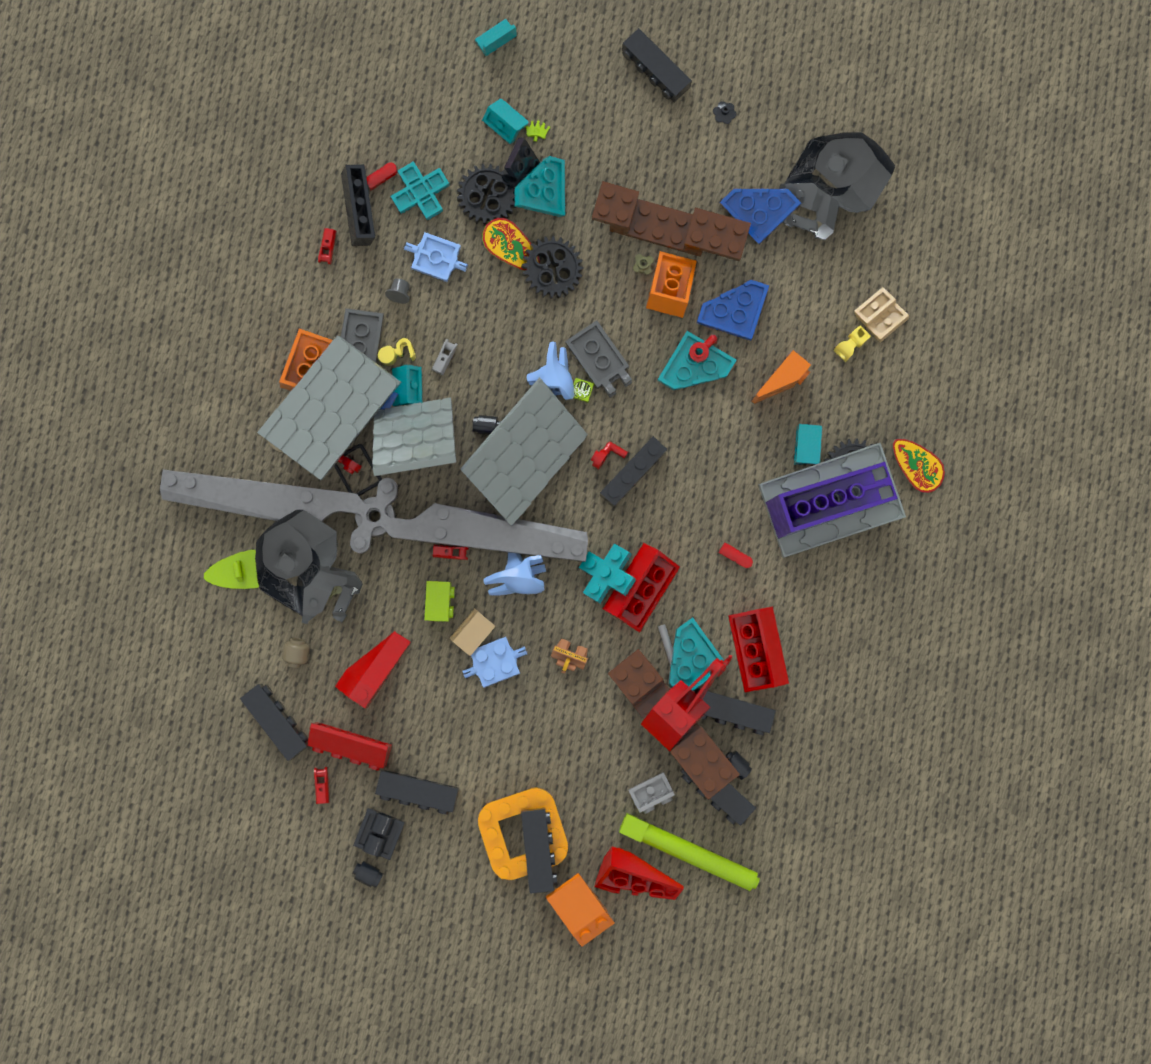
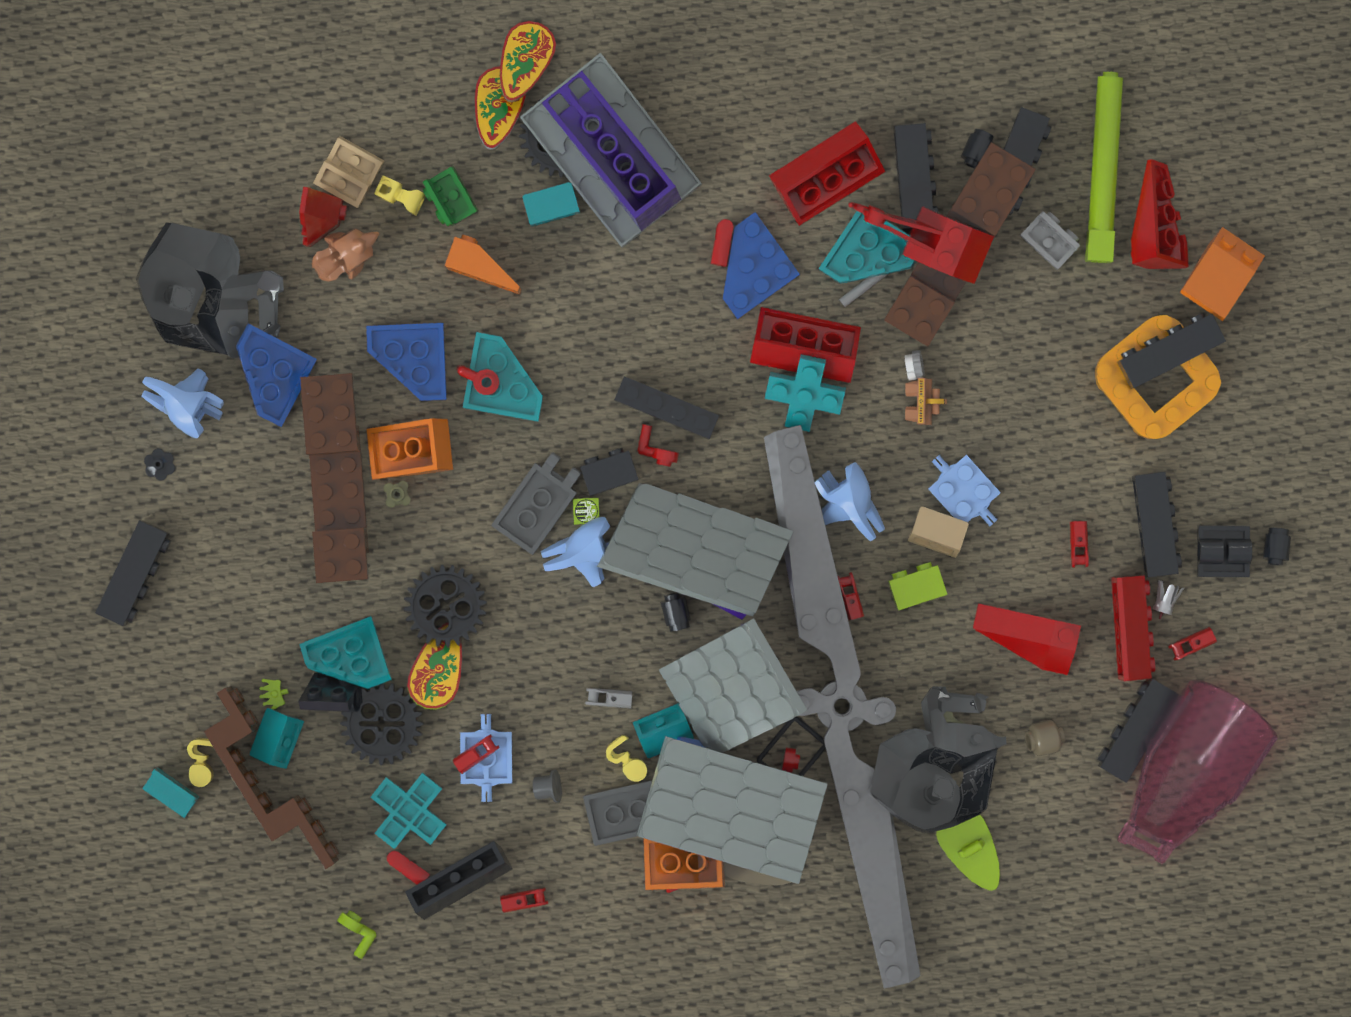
camera: 115 degrees left, 5 degrees up
(230, 753) = (1195, 766): none -> clear pink windscreen
(357, 124) = (352, 921): none -> lime plate
(358, 775) = (1165, 603): none -> flat silver piece
(429, 732) = (1079, 538): none -> red bar
(440, 247) = (472, 755): none -> red bar
(481, 86) = (288, 815): none -> reddish brown bracket
(501, 61) = (200, 772): none -> light yellow leg
(597, 660) = (914, 365): none -> piece
(602, 415) = (609, 472): none -> black brick
(710, 573) = (755, 267): none -> blue plate
(761, 142) = (184, 401): none -> light blue piece
(825, 289) = (345, 254): none -> nougat head
(838, 376) = (449, 197): none -> green bracket
(861, 277) = (319, 215): none -> red wedge
(886, 428) = (493, 112): none -> shield

